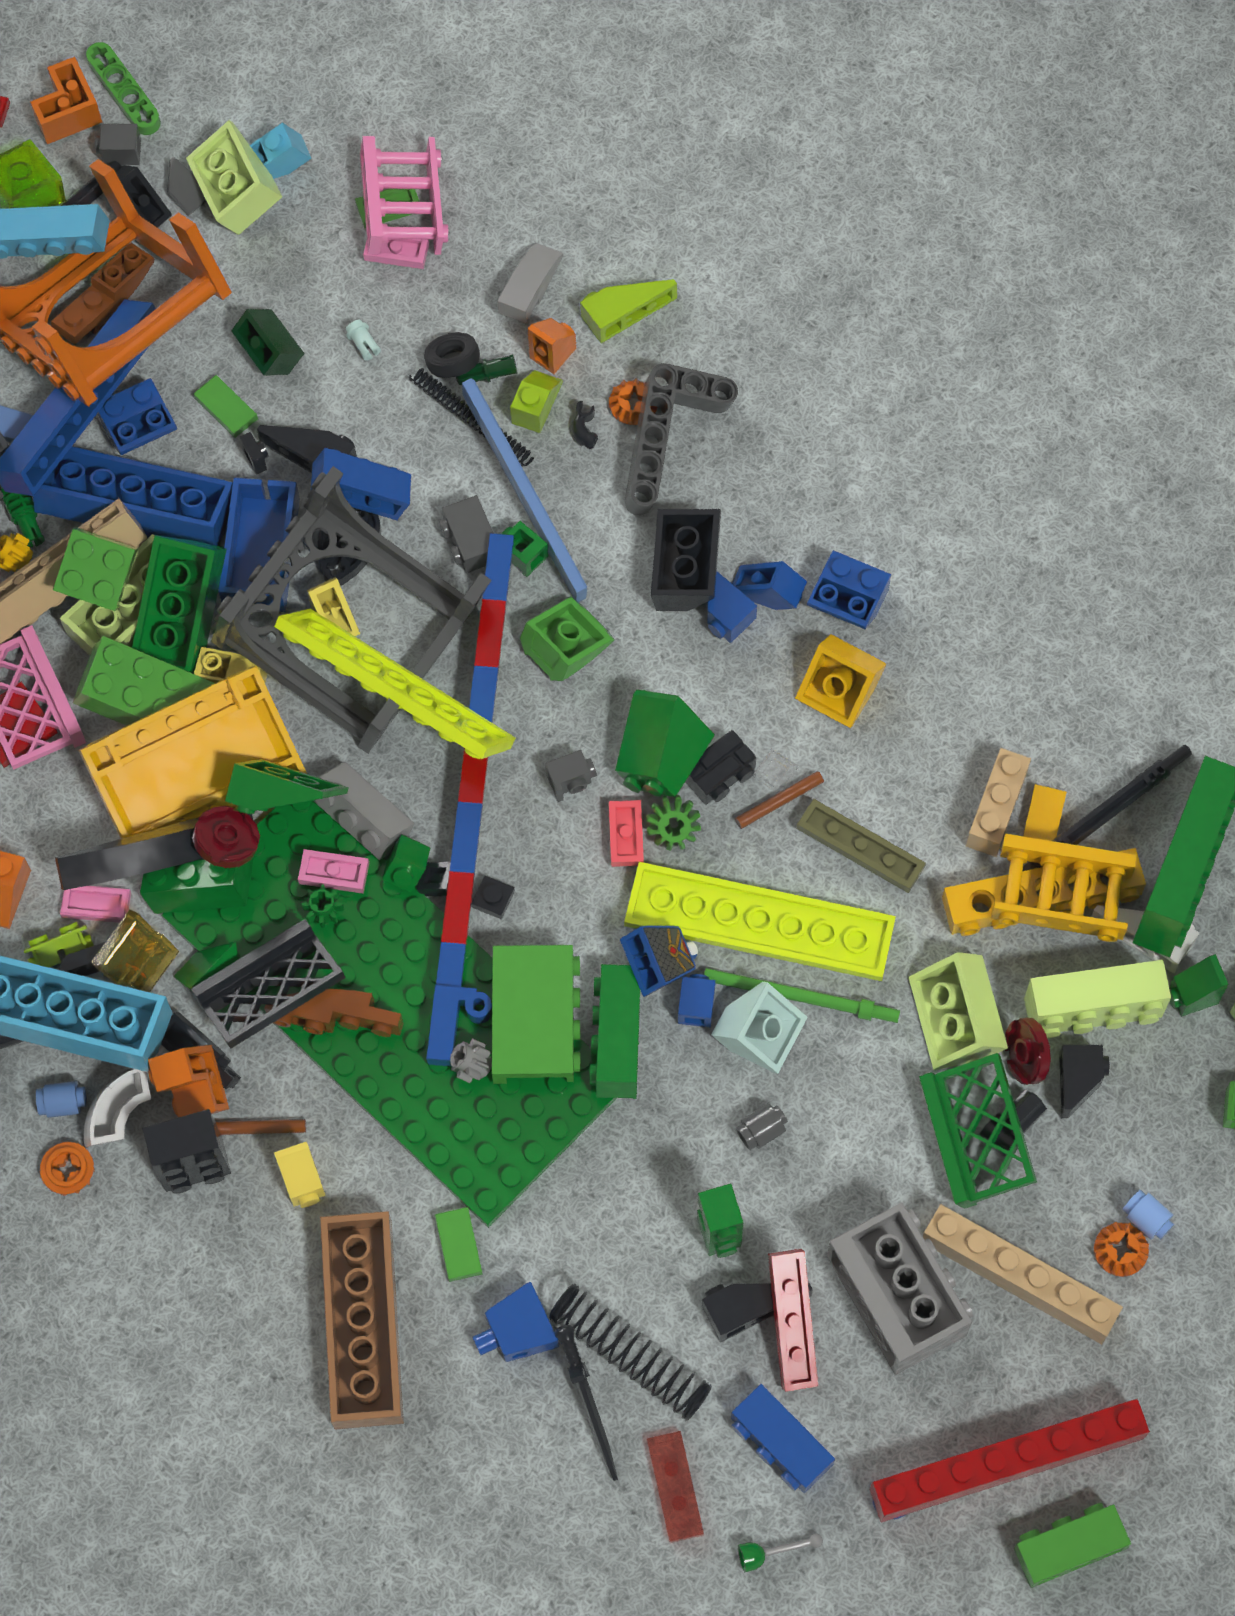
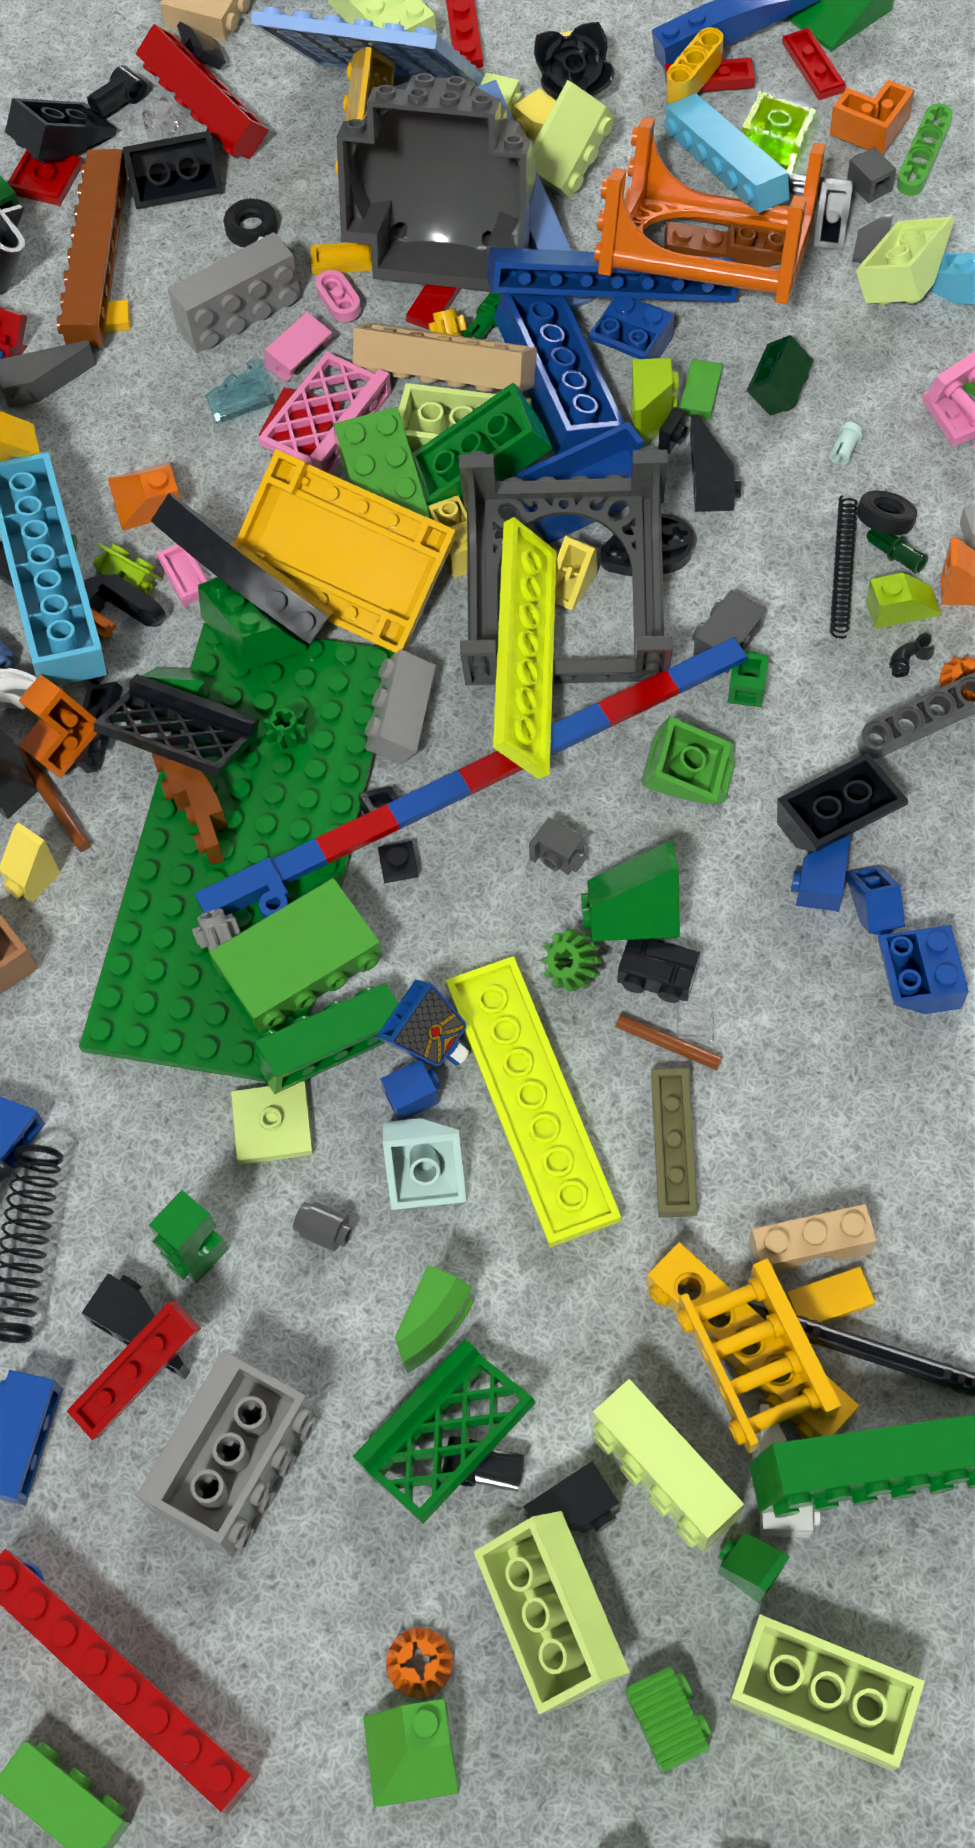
camera: 60 degrees right, 5 degrees down
(95, 569) = (455, 366): bright green brick -> none
(135, 954) = (148, 623): clear yellow slope -> none
(215, 446) = (652, 395): none -> lime slope
(226, 837) = (282, 606): dark red tile -> none
(268, 785) = (360, 614): green slope -> none
(333, 871) = (325, 717): bright pink plate -> none
(366, 483) = (702, 515): blue brick -> none
(406, 863) = (373, 768): green brick -> none
(458, 1244) = (48, 1035): bright green tile -> none
(524, 489) = (800, 643): medium blue tile -> none
(626, 833) = (535, 929): coral plate -> none
(652, 1120) = (271, 1124): none -> yellowish green plate
(840, 680) = (829, 1018): yellow slope -> none
(864, 1009) = (507, 1247): bright green bar -> none
(889, 1089) = (432, 1316): none -> bright green slope
(957, 1011) = (565, 1338): yellowish green slope -> none
(1022, 1274) = (322, 1573): tan brick -> none
(1028, 1051) = (559, 1433): dark red tile -> none
(1148, 1135) = (550, 1612): none -> yellowish green brick
(1148, 1215) = (470, 1668): light blue brick -> none
(1179, 1289) = (410, 1753): none -> bright green slope

